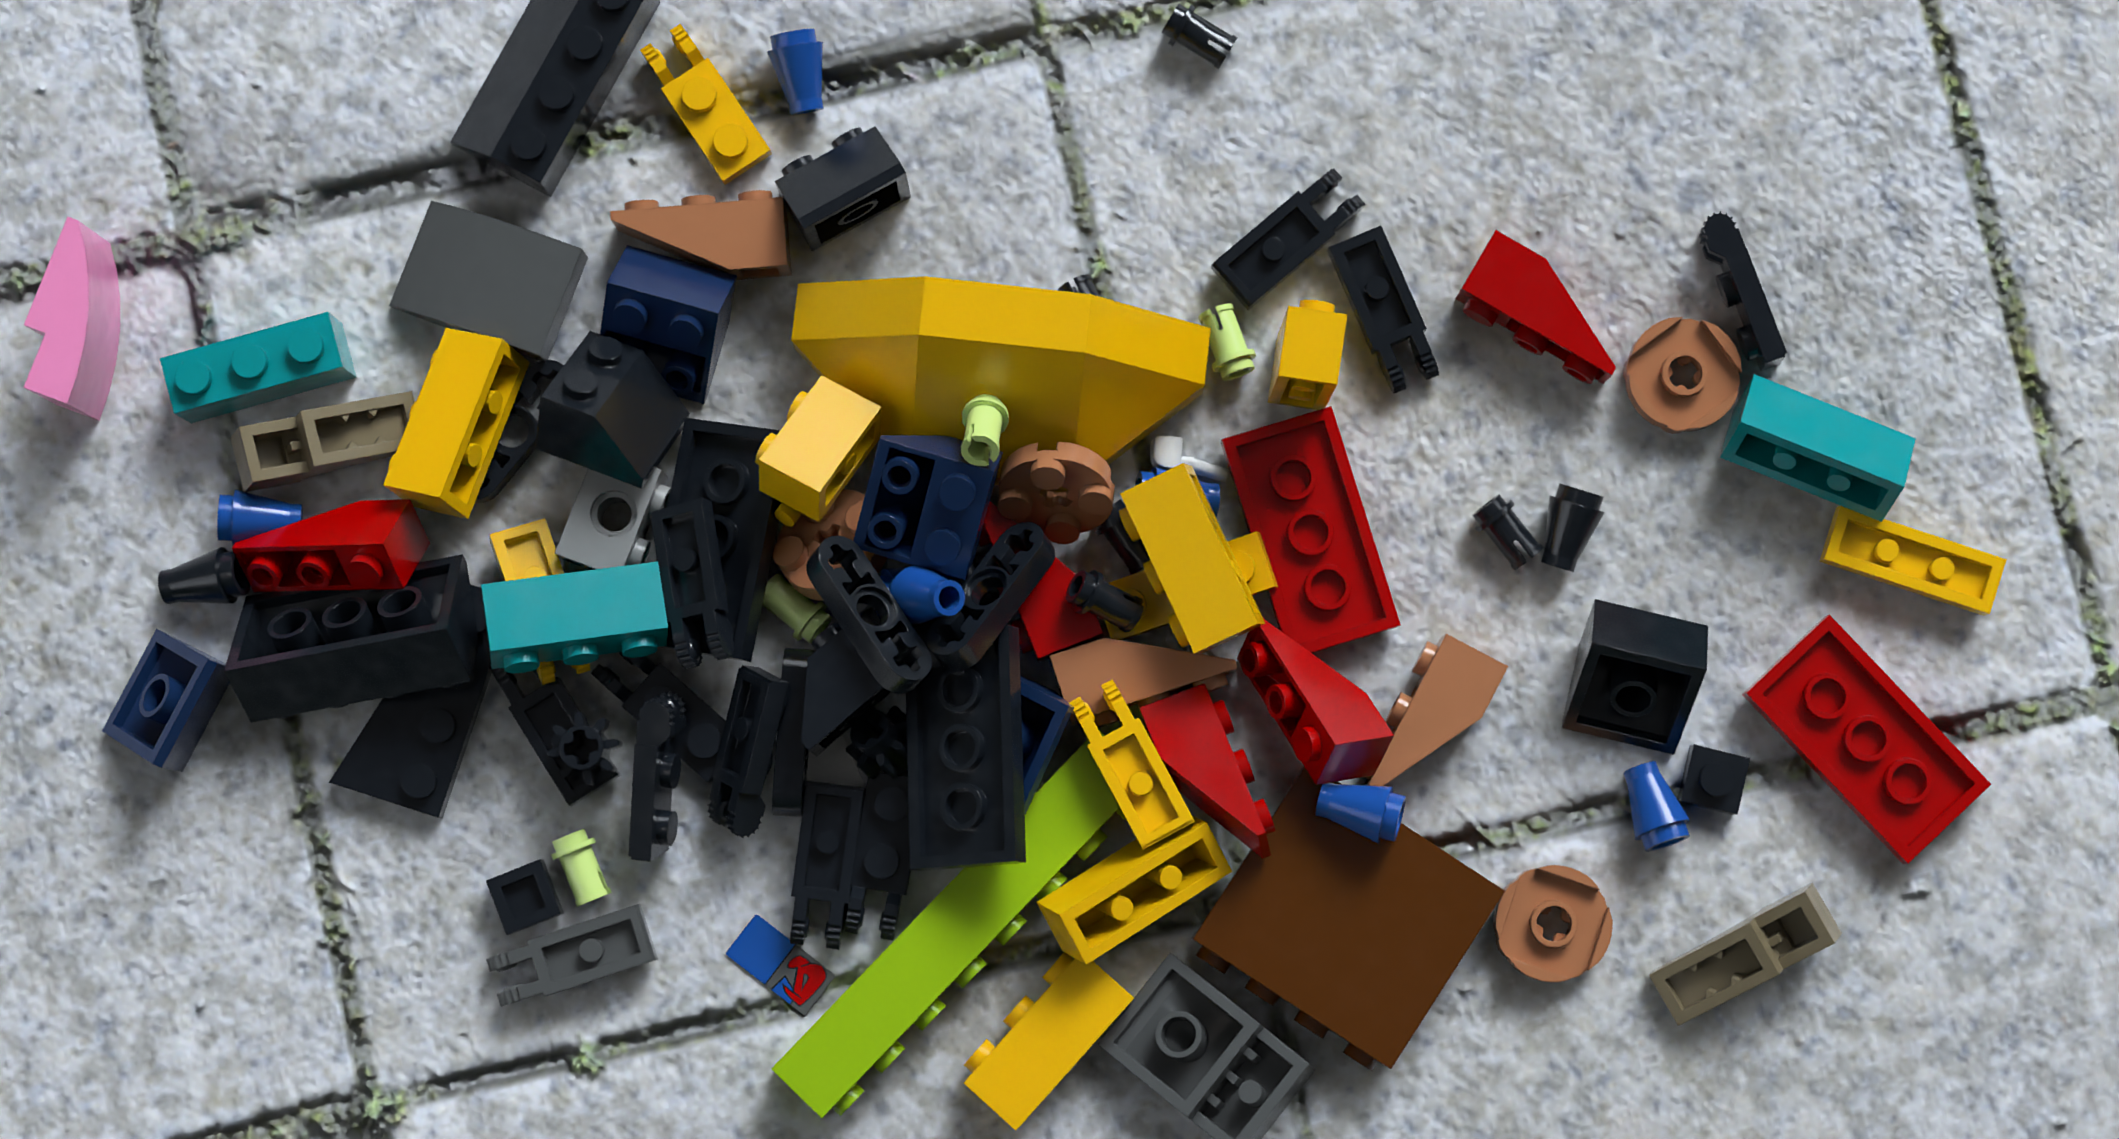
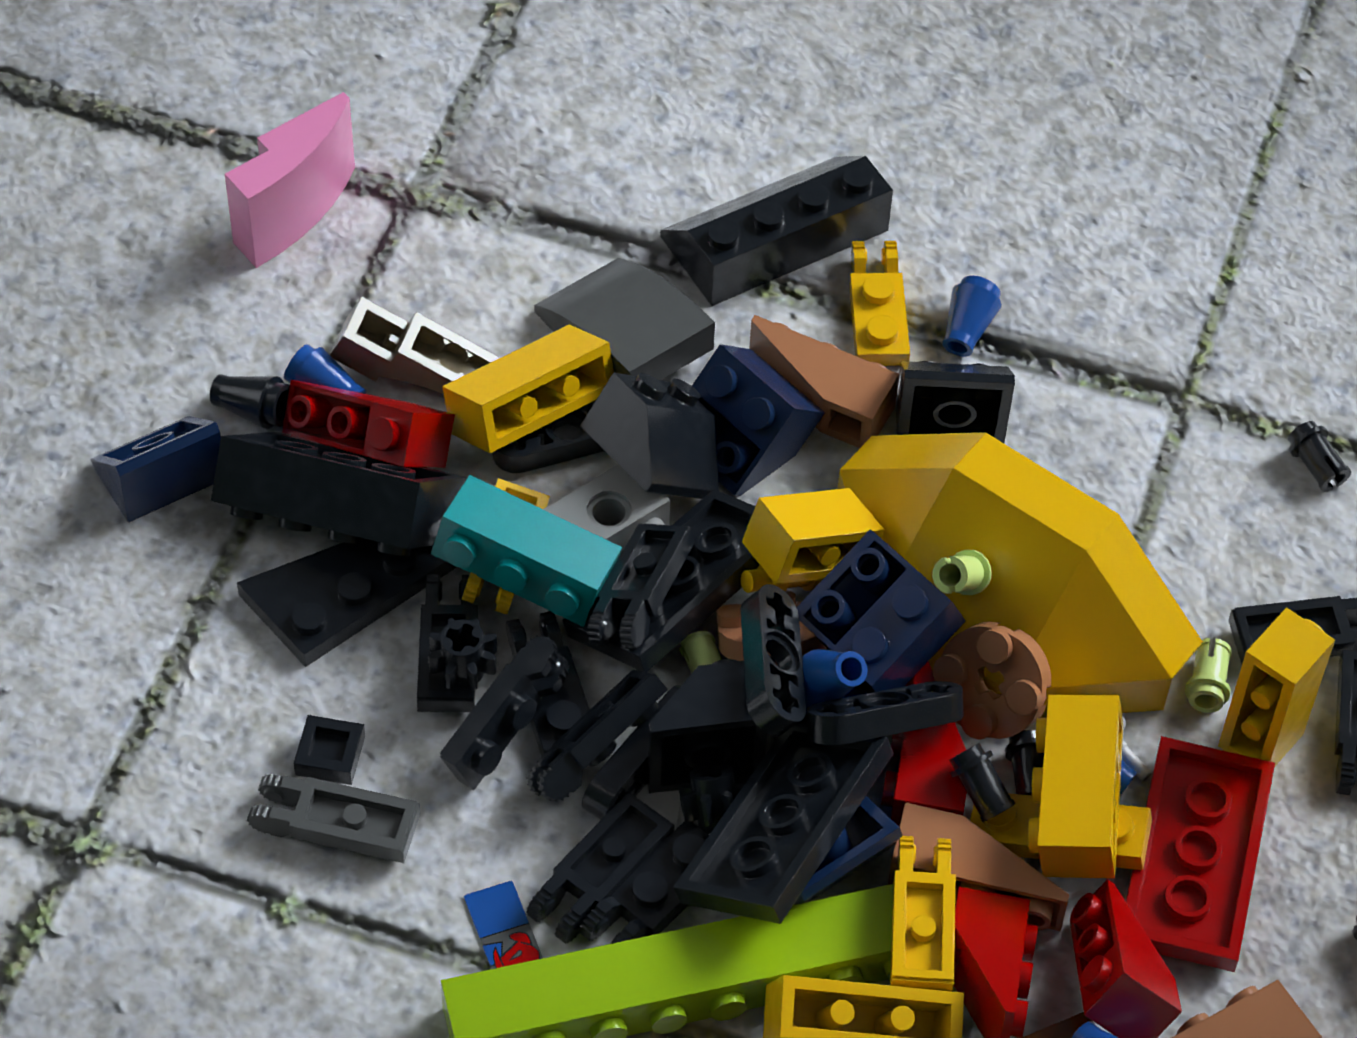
camera: 30 degrees right, 30 degrees down
(258, 367) = (405, 280): teal brick -> none
(580, 867) = (394, 744): yellowish green pin -> none

